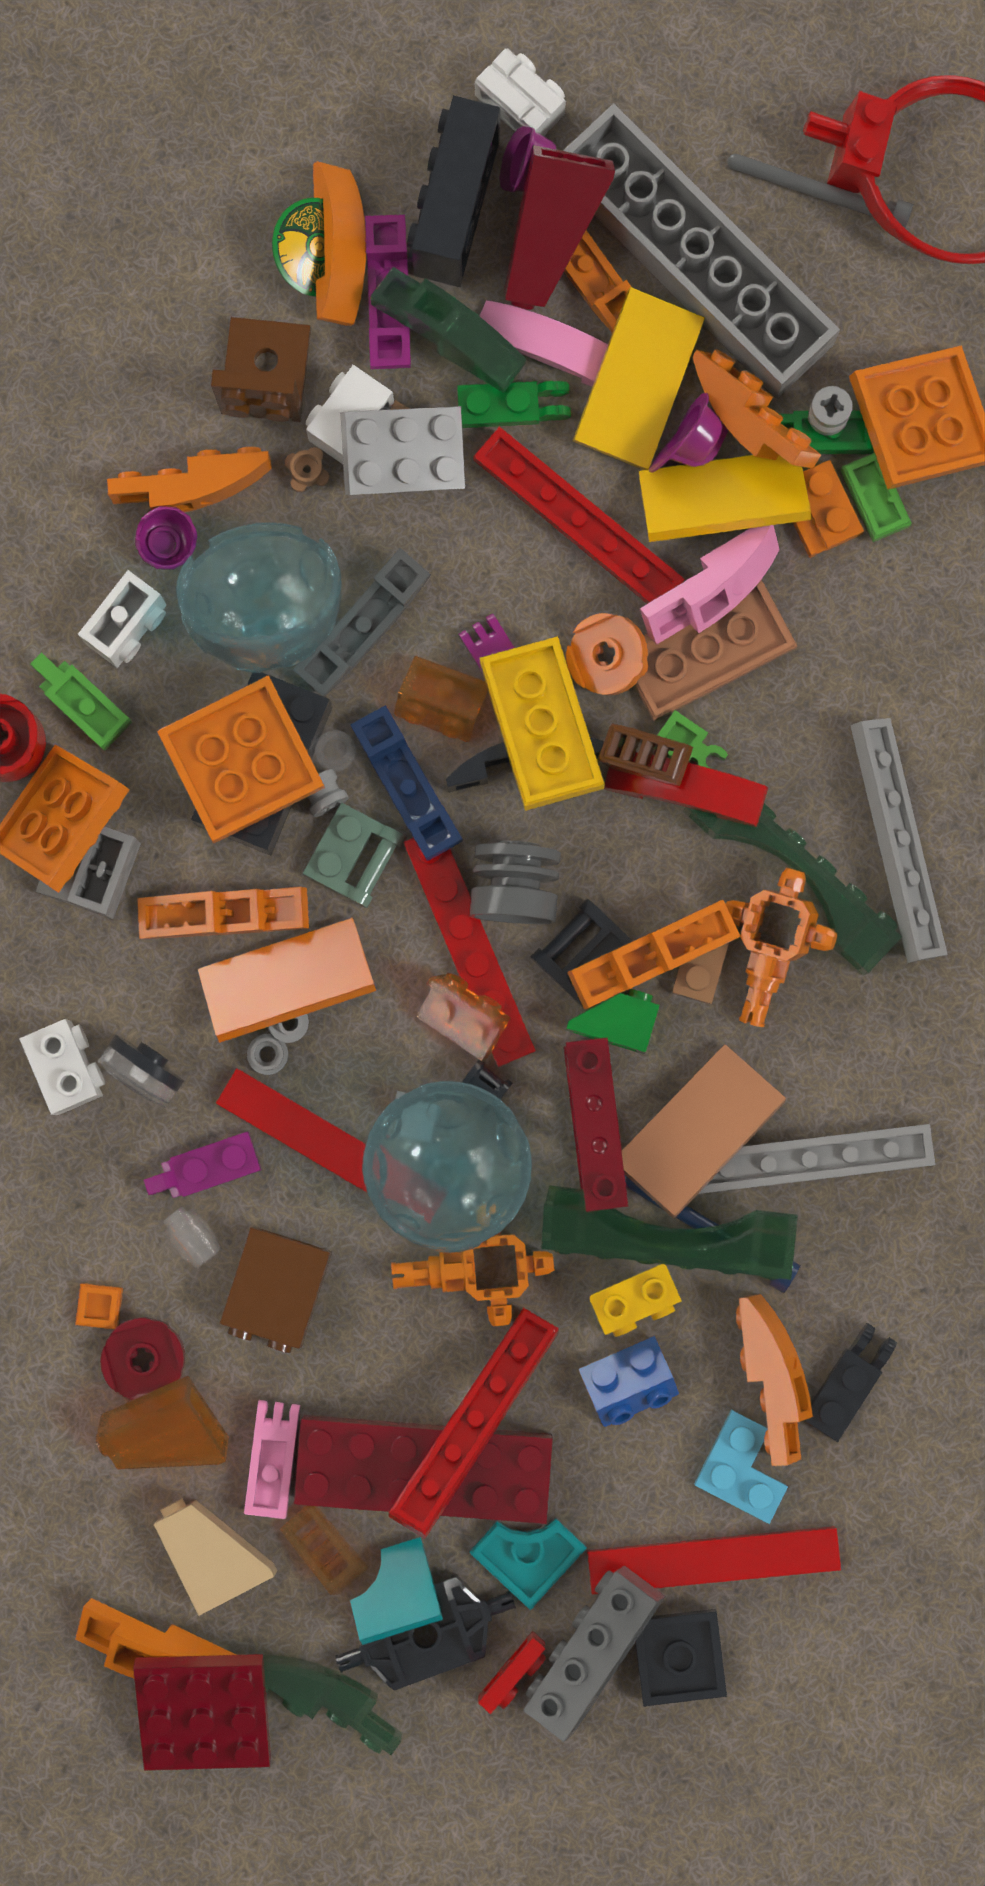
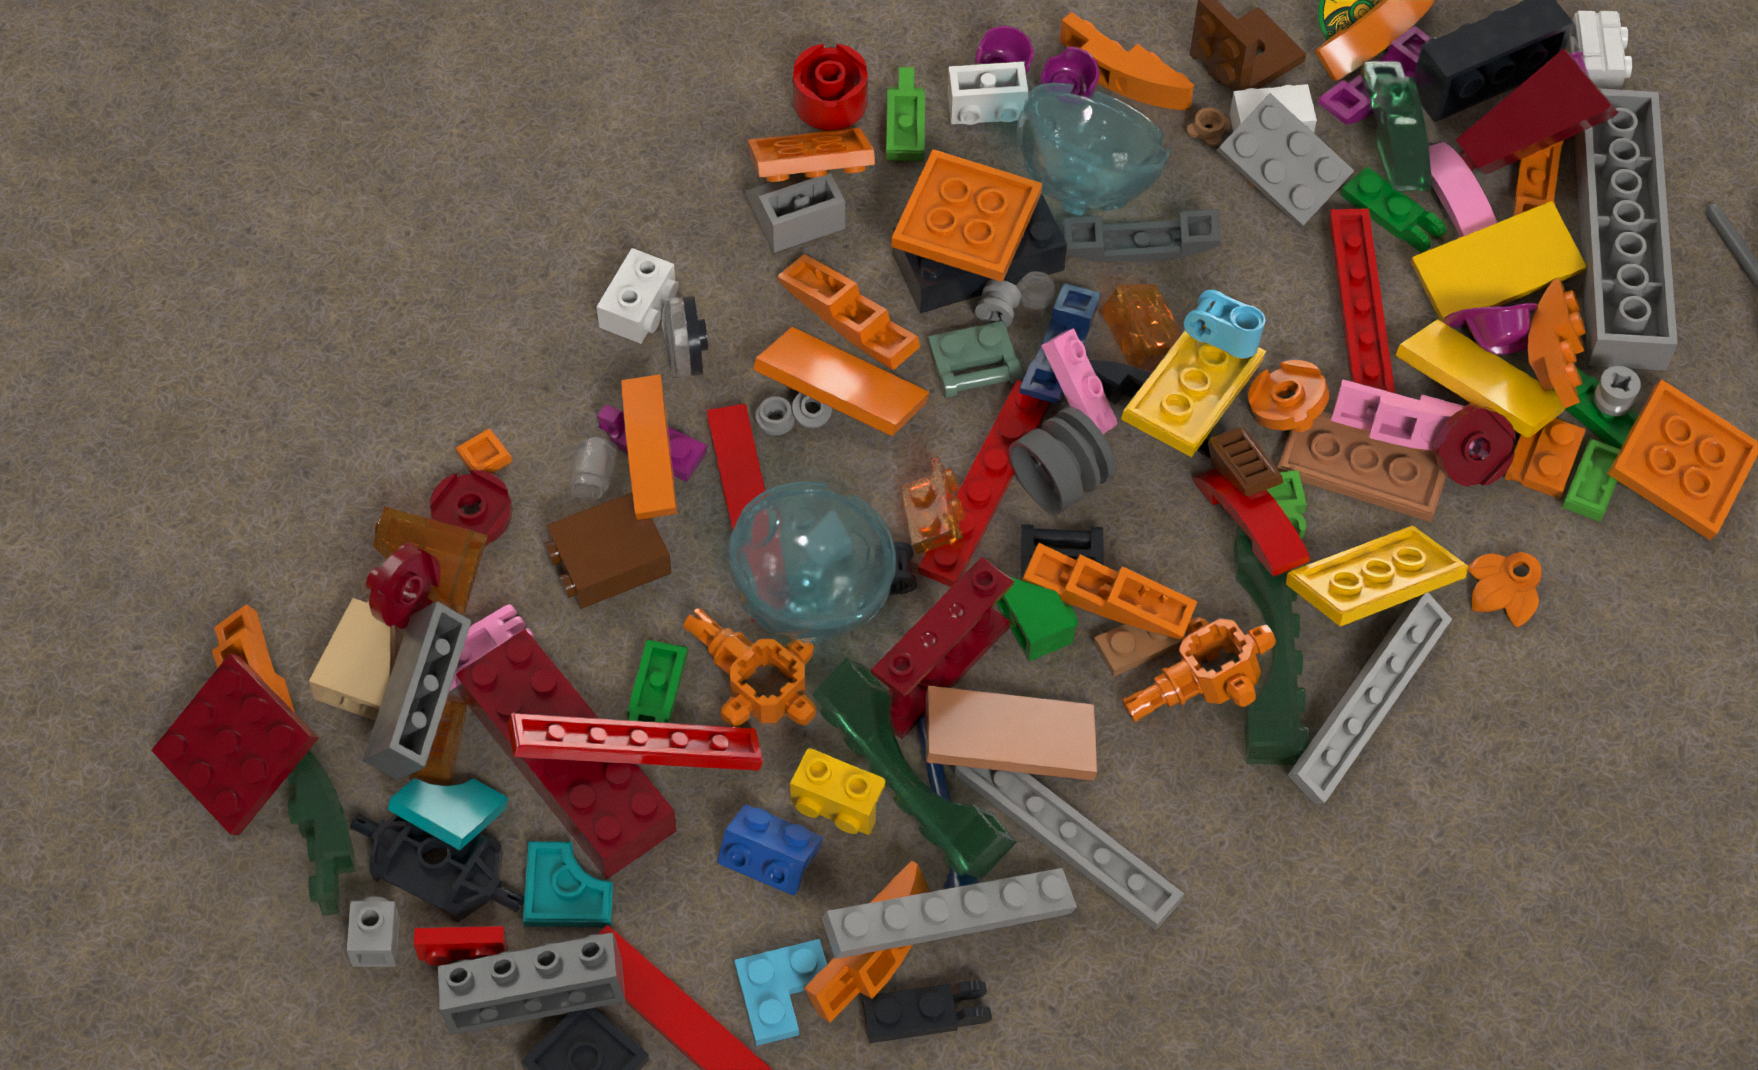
camera: 45 degrees right, 25 degrees down
(85, 564) = (1005, 45): none -> magenta hair
(191, 1490) = (402, 585): none -> dark red plate
(220, 1187) = (648, 447): none -> orange slope
(288, 1548) = (417, 691): none -> dark grey brick
(426, 1353) = (657, 682): none -> green hinge
(446, 1728) = (373, 933): none -> light grey brick
(460, 807) = (1078, 379): none -> bright pink hinge
(513, 653) = (1228, 324): none -> medium azure piece
(768, 579) = (1456, 436): none -> dark red plate
(806, 1313) = (948, 913): none -> light grey plate
(818, 746) = (1376, 575): none -> yellow tile
(898, 656) = (1503, 589): none -> orange plate

